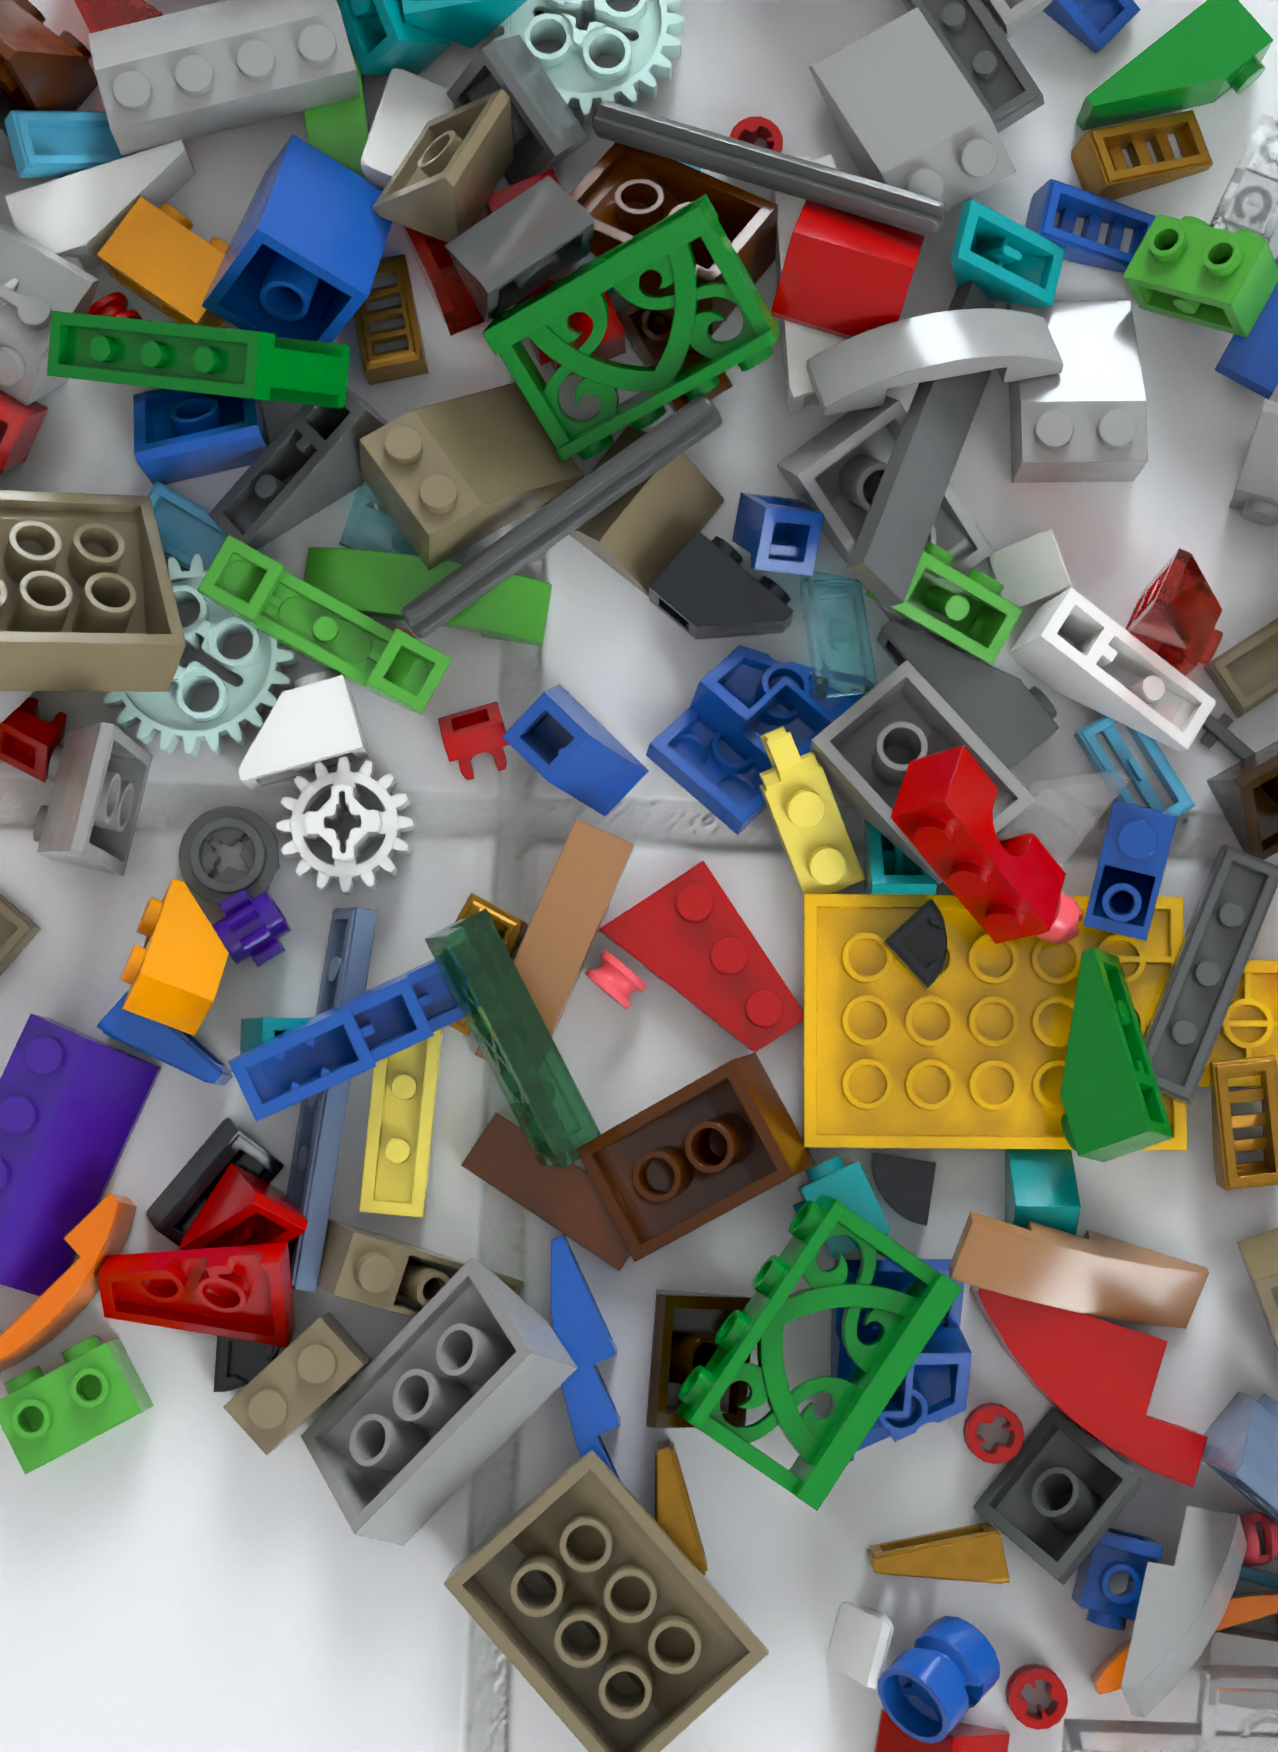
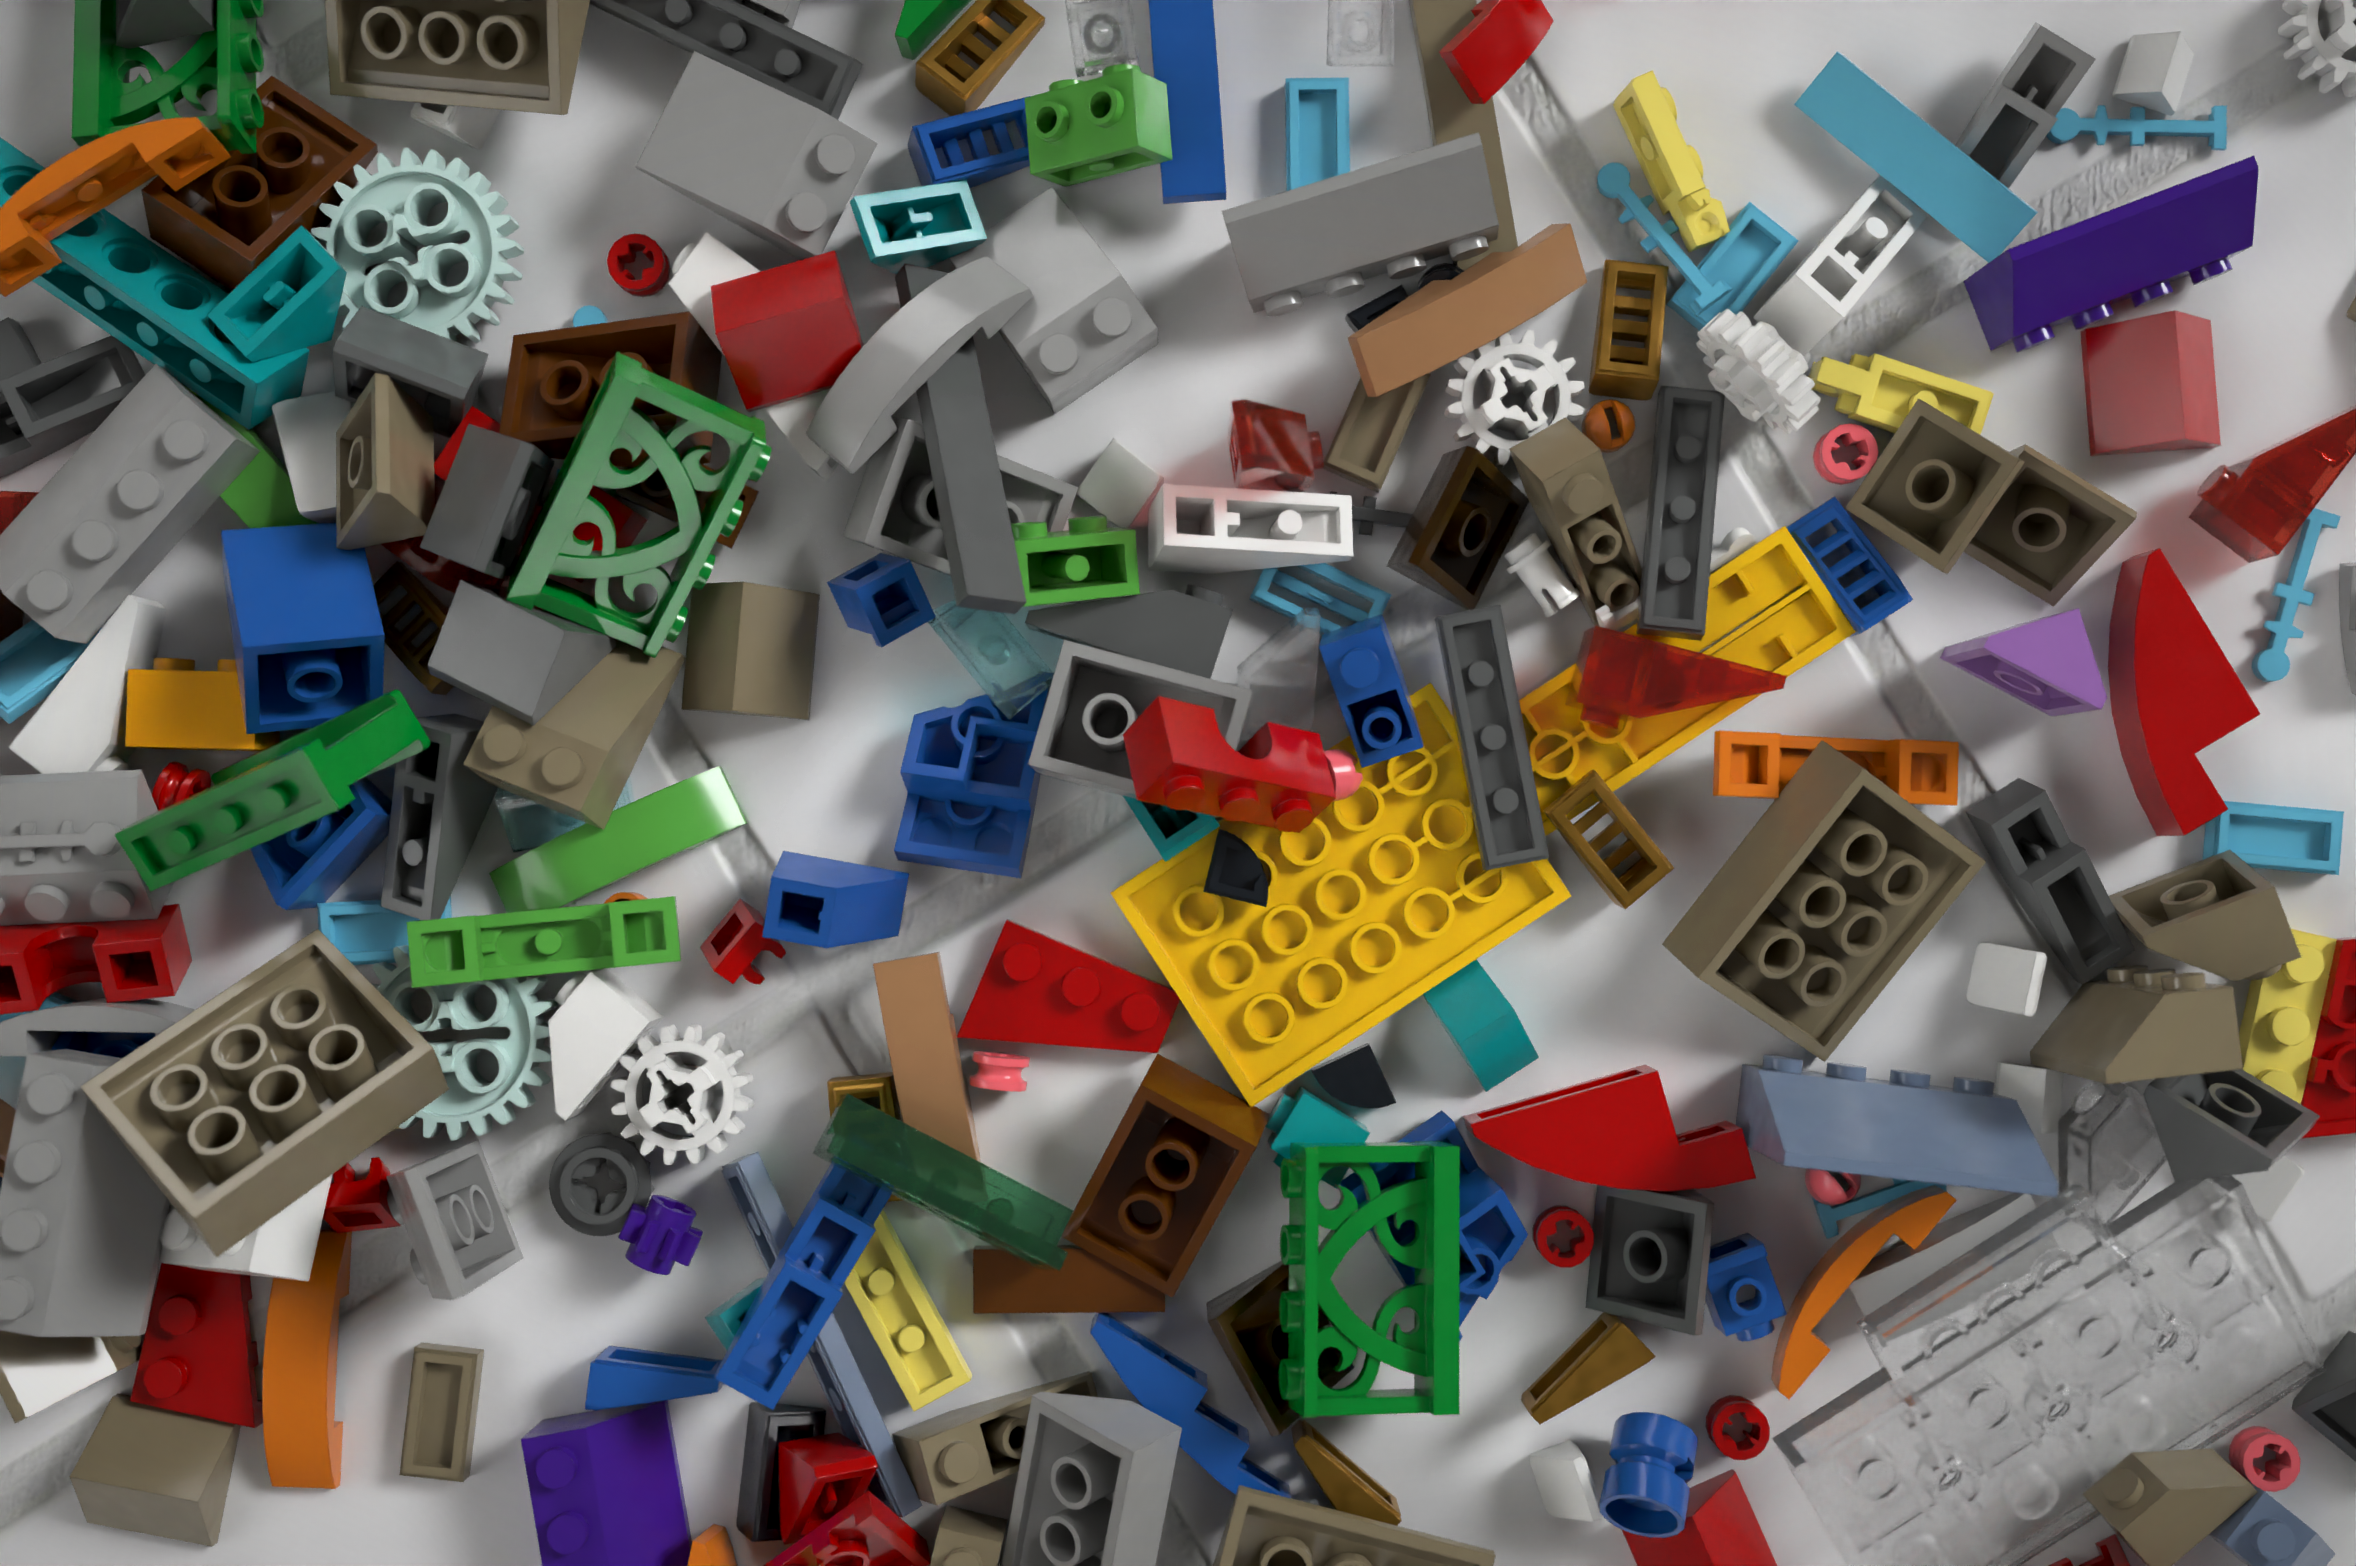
camera: 35 degrees left, 5 degrees up
(178, 966) = (619, 1312): light orange slope -> none
(456, 379) = (513, 653): none -> dark grey slope
(562, 516) = (685, 710): dark grey axle -> none
(715, 596) = (863, 685): black slope -> none
(770, 169) = (661, 283): dark grey axle -> none
(807, 818) = (1070, 827): light yellow hinge -> none
(1077, 1273) = (1547, 1064): medium nougat slope -> none
(1107, 1071) = (1464, 881): green slope -> none
(1182, 1606) = (1810, 1287): light grey slope -> none

